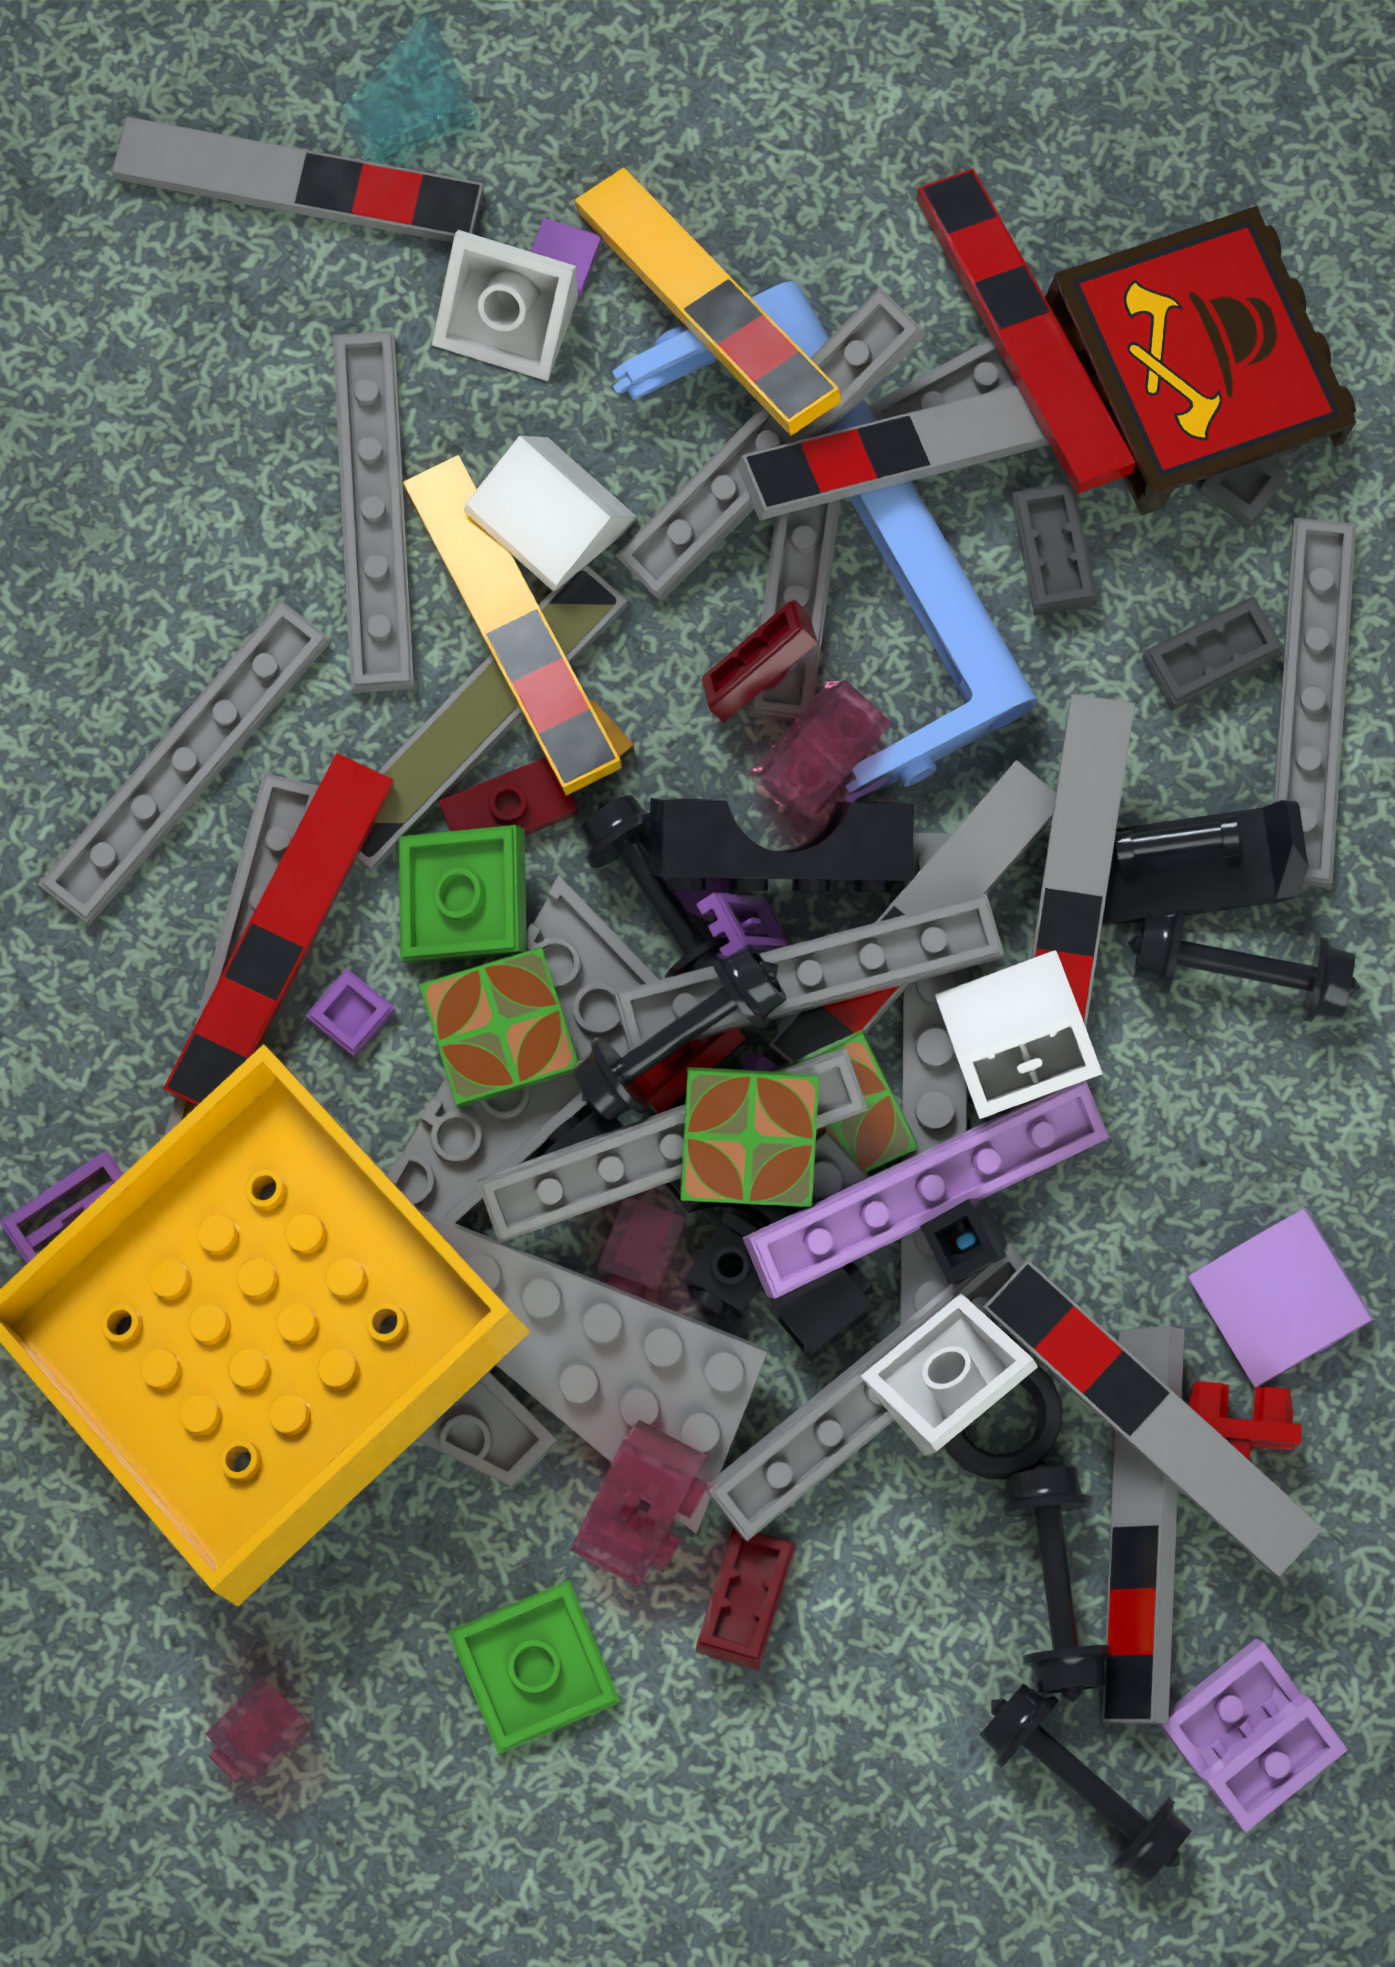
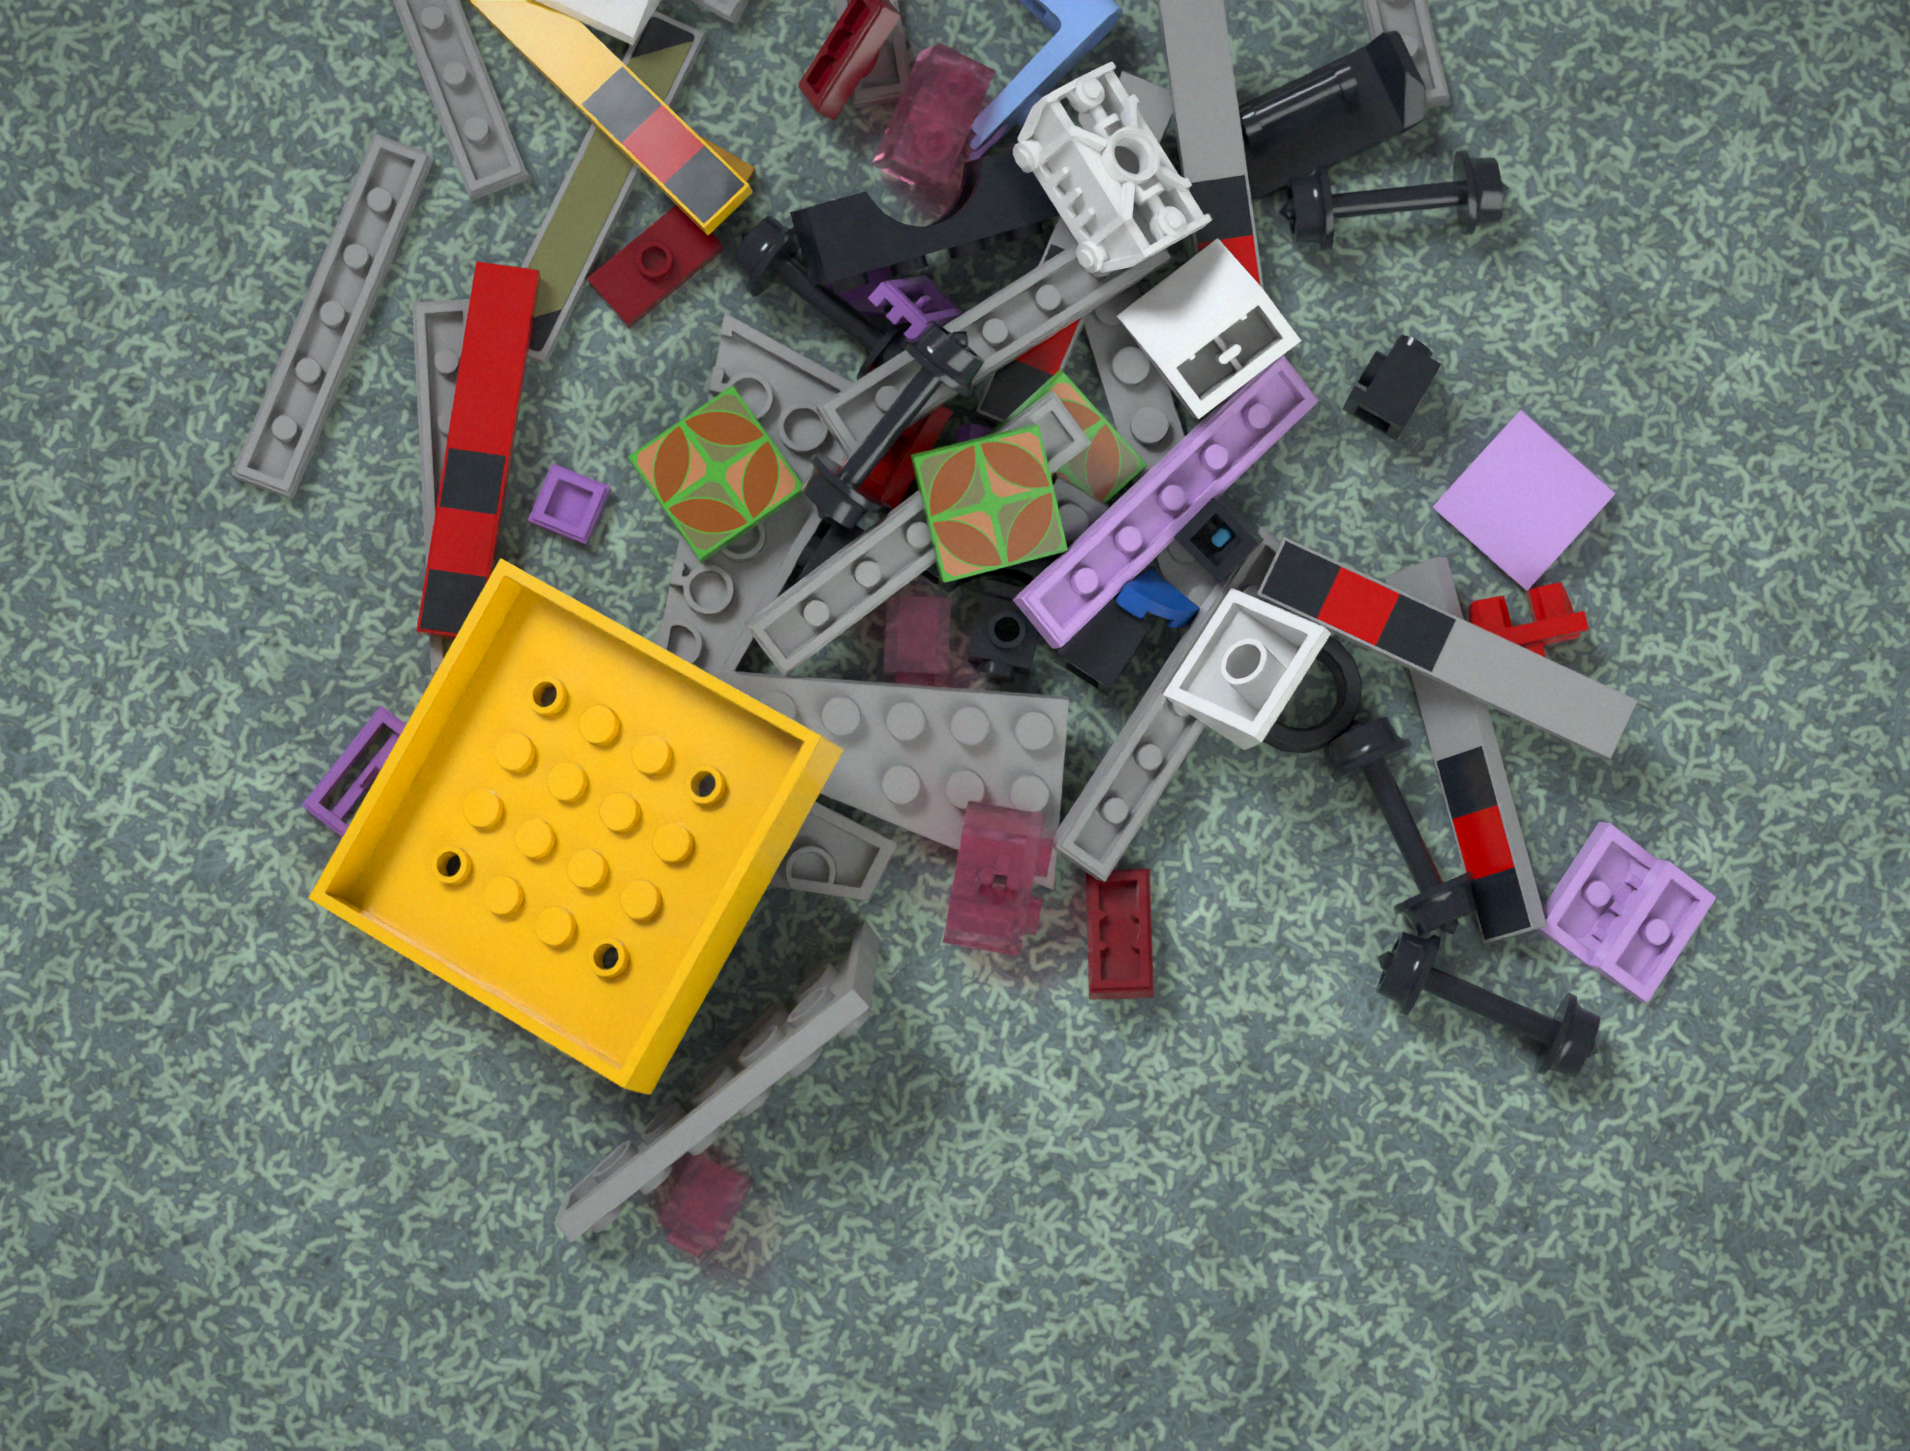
camera: 20 degrees left, 5 degrees up
(324, 1621) = (733, 1082): none -> light grey wing
(462, 894) = (640, 359): bright green tile -> none
(534, 1667) = (942, 1060): bright green tile -> none
(888, 1280) = (1156, 595): none -> blue tile
(942, 859) = (1103, 170): none -> white piece
(1186, 1146) = (1393, 386): none -> black brick

